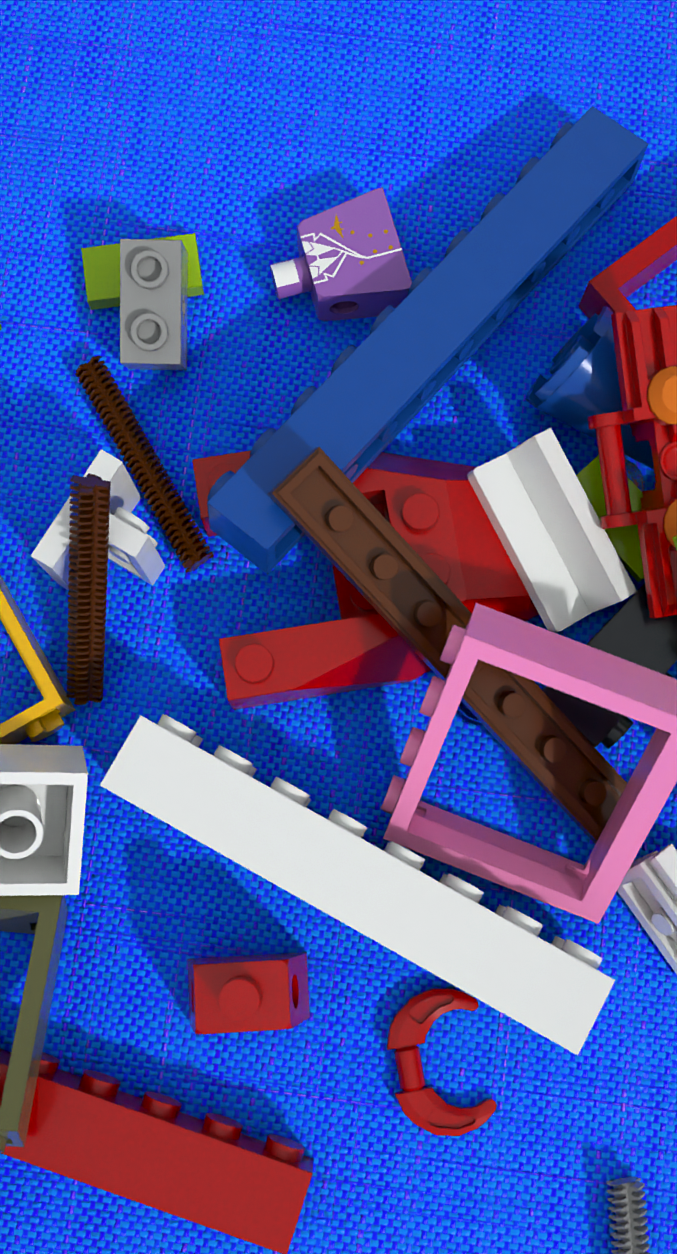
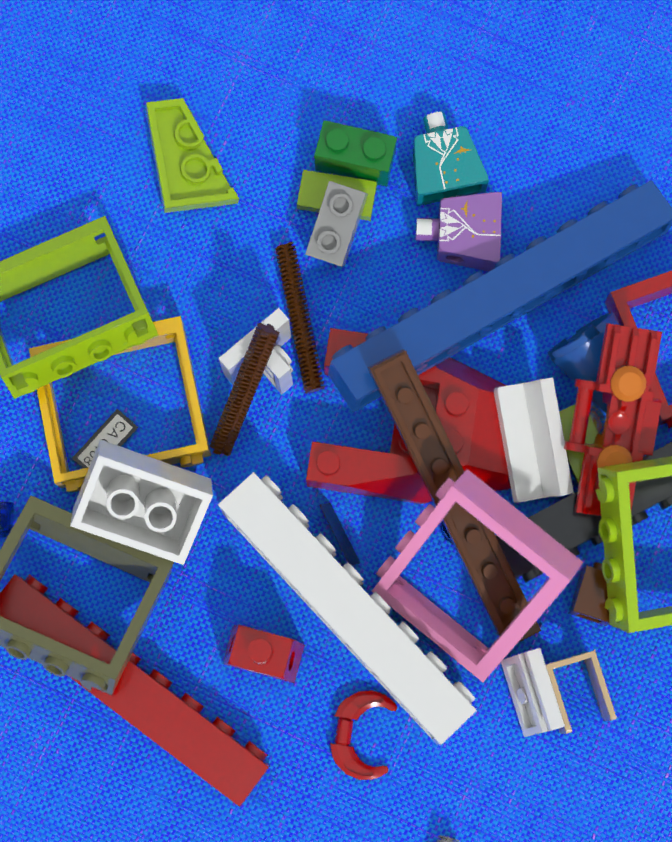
camera: 20 degrees right, 0 degrees up
(149, 197) = (355, 152): none -> green brick
(285, 173) = (446, 162): none -> teal torso
(306, 766) = (339, 533): none -> sticker

